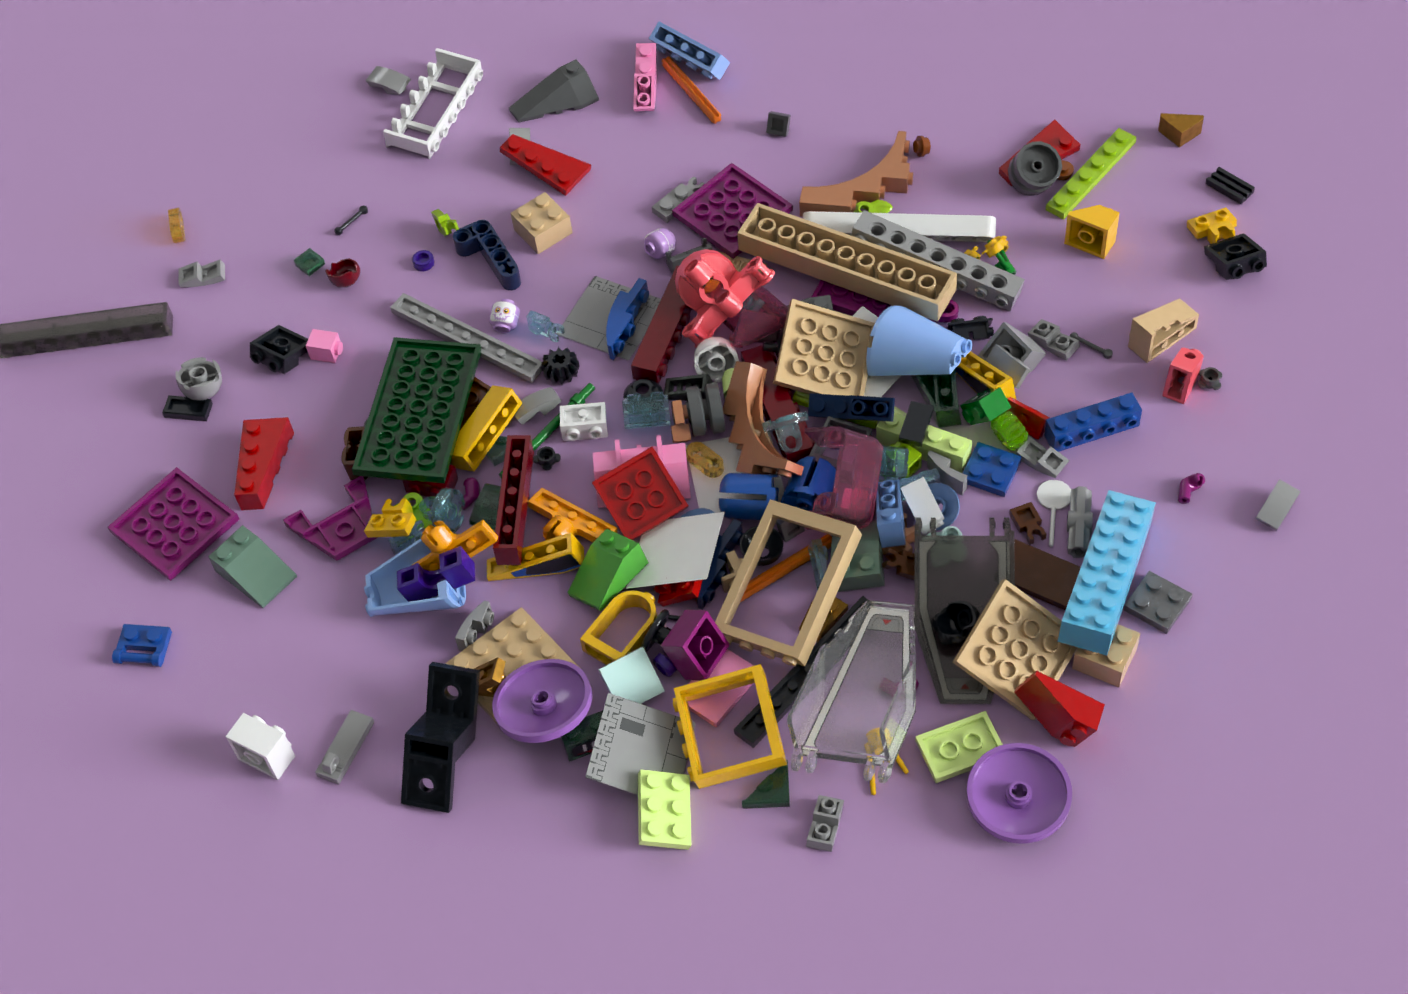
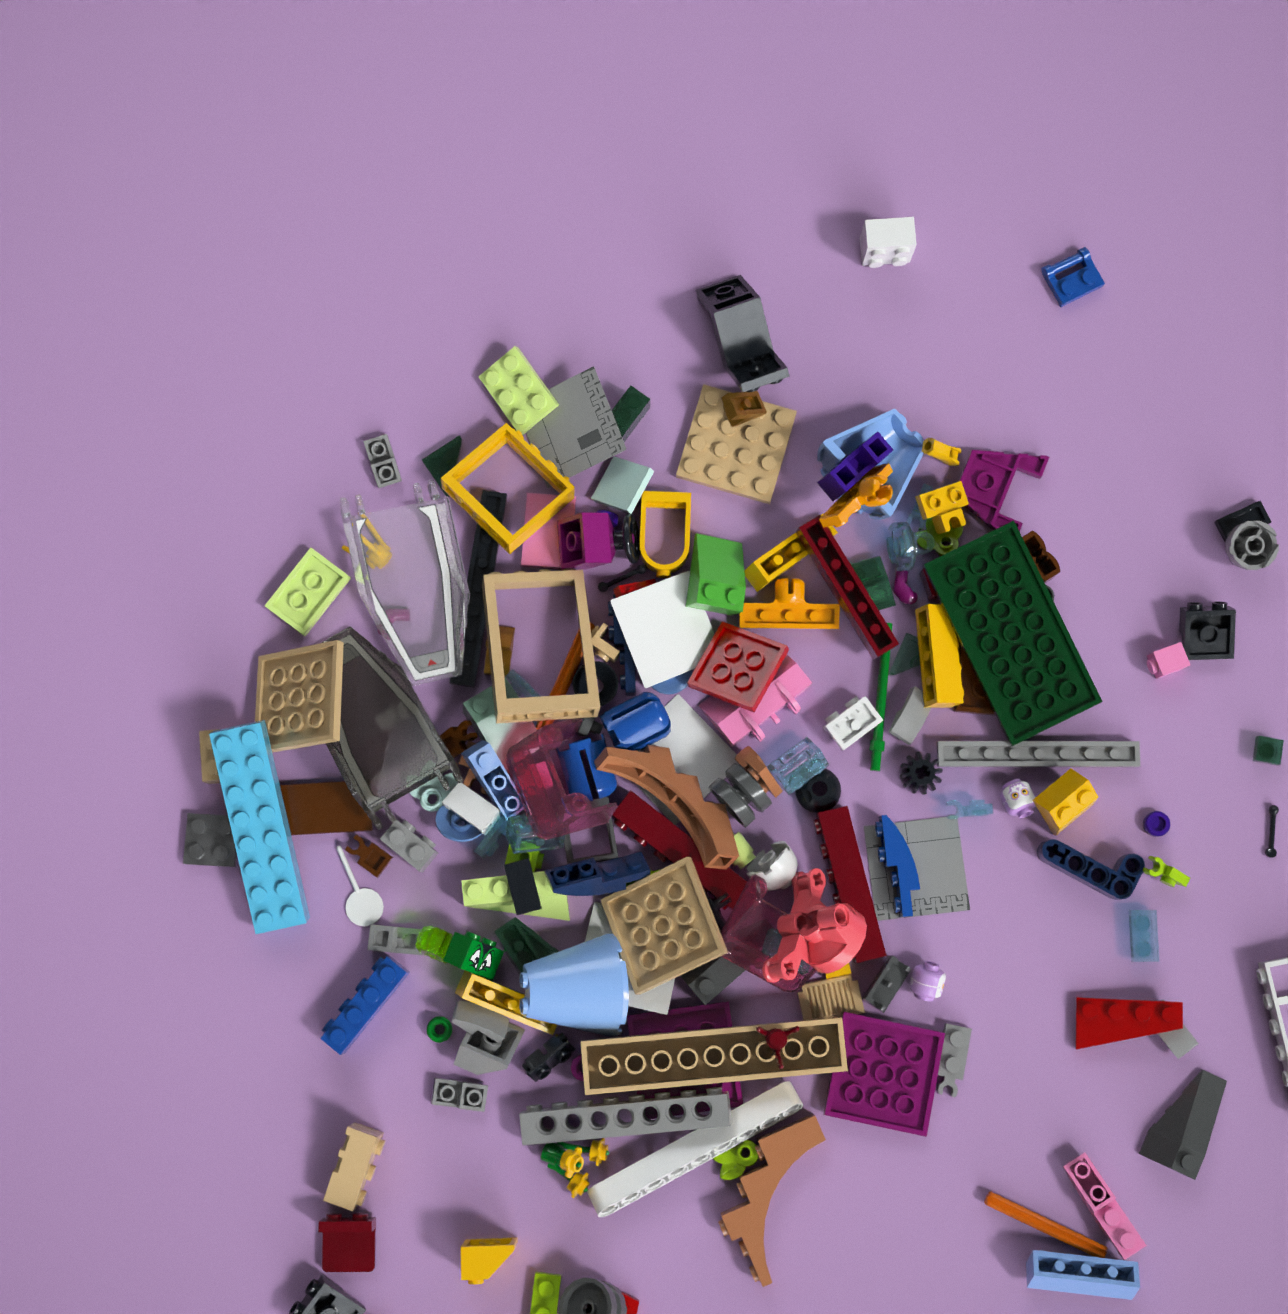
camera: 140 degrees right, 25 degrees up
(173, 523) = (1147, 398): magenta plate -> none
(251, 566) = (1038, 398): sand green slope -> none
(259, 460) = (1122, 501): red wedge -> none
(343, 273) = (1221, 755): dark red hair -> none
(344, 747) = (825, 294): light grey hinge -> none
(359, 566) = (941, 451): none -> yellow bar
(473, 288) = (1065, 800): none -> yellow slope
(476, 622) = (795, 464): light grey slope -> none
(490, 202) = (1143, 936): none -> clear light blue plate
(541, 223) = (1068, 936): tan brick -> none
(542, 700) = (678, 412): medium lavender dish -> none
(546, 452) = (866, 663): black plate -> none
(680, 394) = (761, 832): pearl dark grey slope -> none
(702, 462) = (712, 745): clear yellow beam -> none
(778, 123) = (914, 1226): dark grey tile -> none
(785, 427) = (644, 809): clear light blue tile -> none
(794, 234) = (777, 1040): none -> dark red plant
(921, 146) = (739, 1284): dark orange plate -> none
(948, 476) = (480, 867): light grey slope -> none
(955, 622) = (372, 703): black hair -> none
(988, 503) = (409, 846): none -> light grey brick
(991, 469) = (437, 899): blue plate -> none
(1019, 793) = (232, 571): medium lavender dish -> none
(1030, 418) = (434, 973): red plate -> none
(1043, 384) = (439, 1037): none -> green plate
(1060, 709) = (224, 663): red slope -> none
(1079, 521) = (322, 883): light grey piece -> none
(1107, 353) = (398, 1110): dark grey hinge -> none
(1187, 365) = (302, 1109): coral torso -> none
(1189, 485) = (242, 988): magenta arm -> none
(1195, 289) = (348, 1242): none -> dark red bracket
(1210, 373) = (277, 1139): dark grey plate -> none
(1277, 505) = (146, 1010): light grey slope -> none

